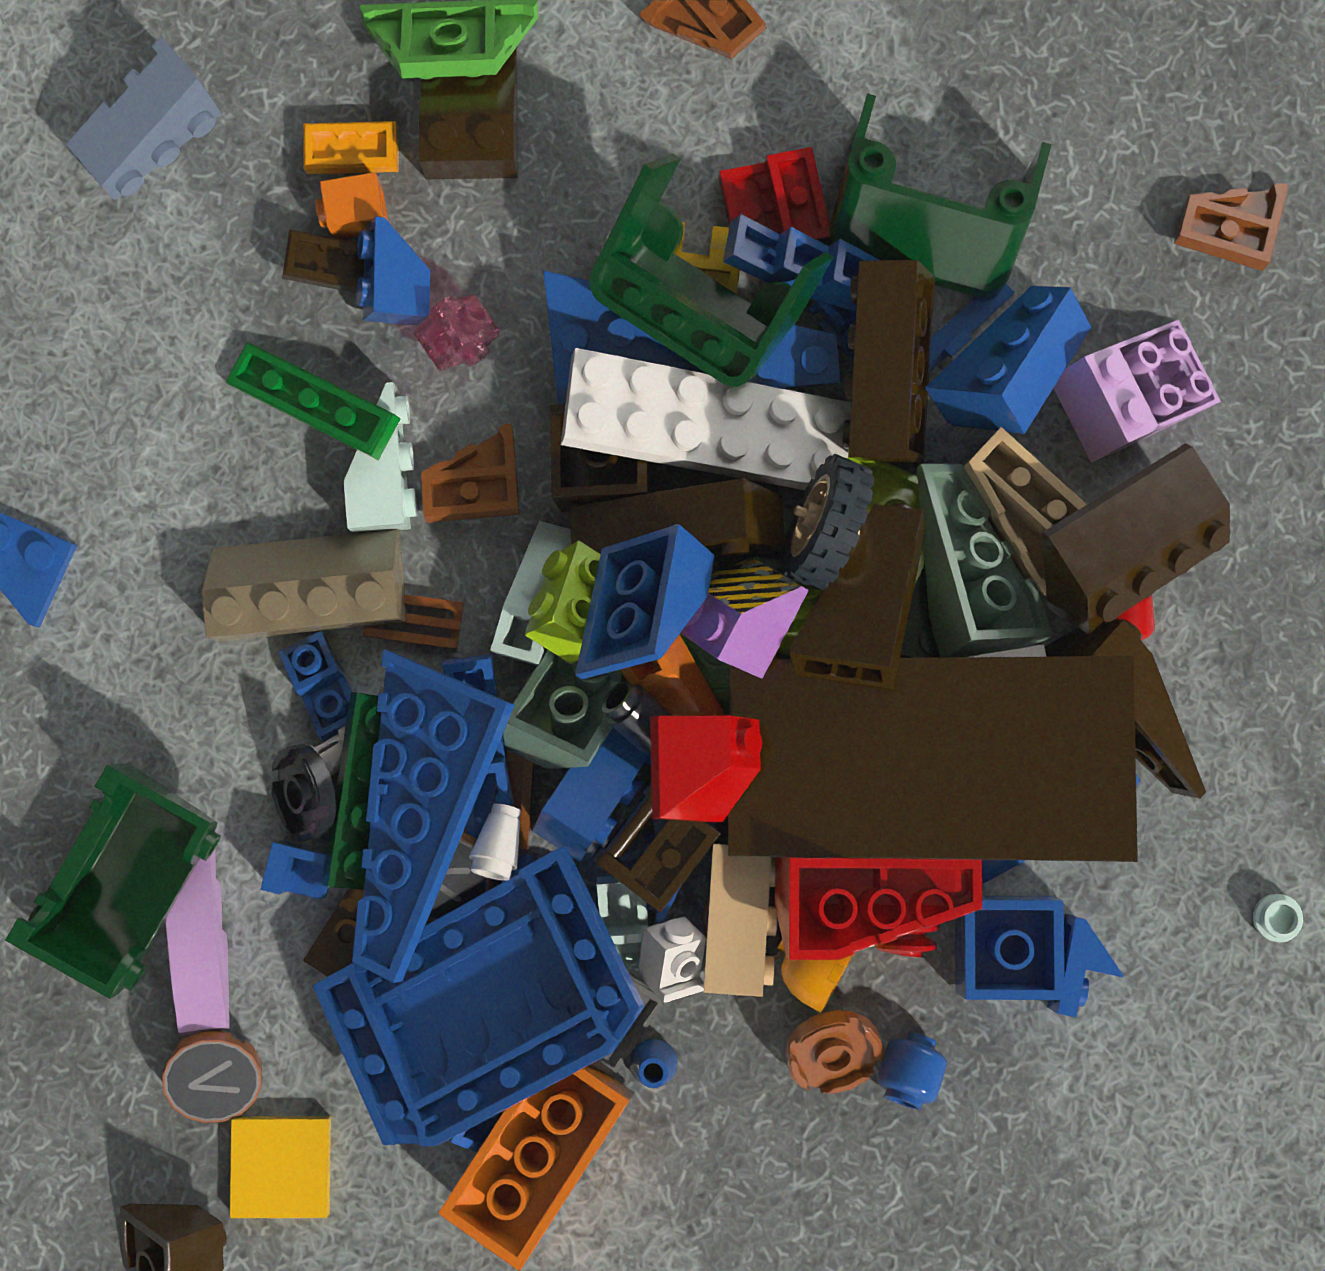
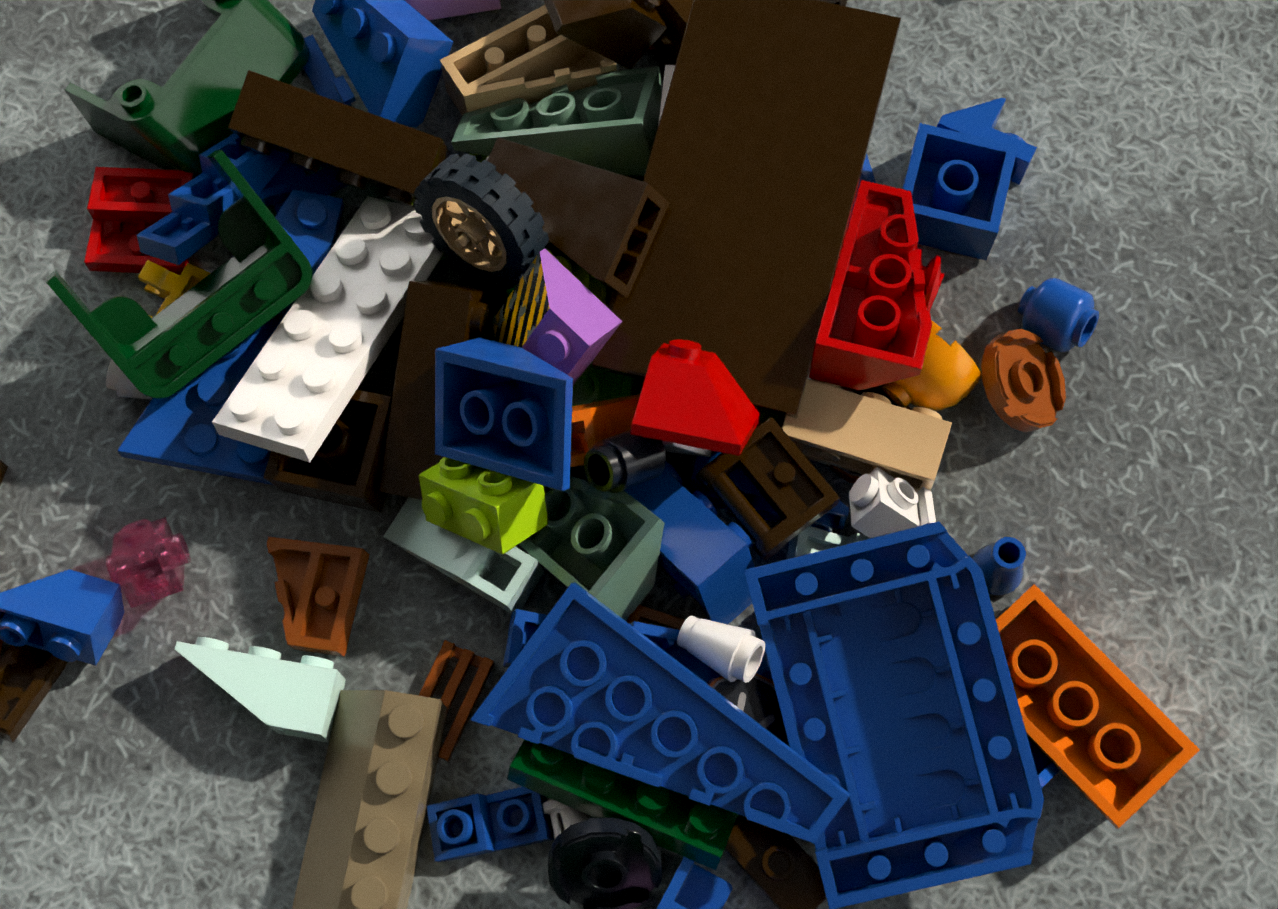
camera: 75 degrees left, 15 degrees down
(313, 401) = (163, 741): green tile -> none

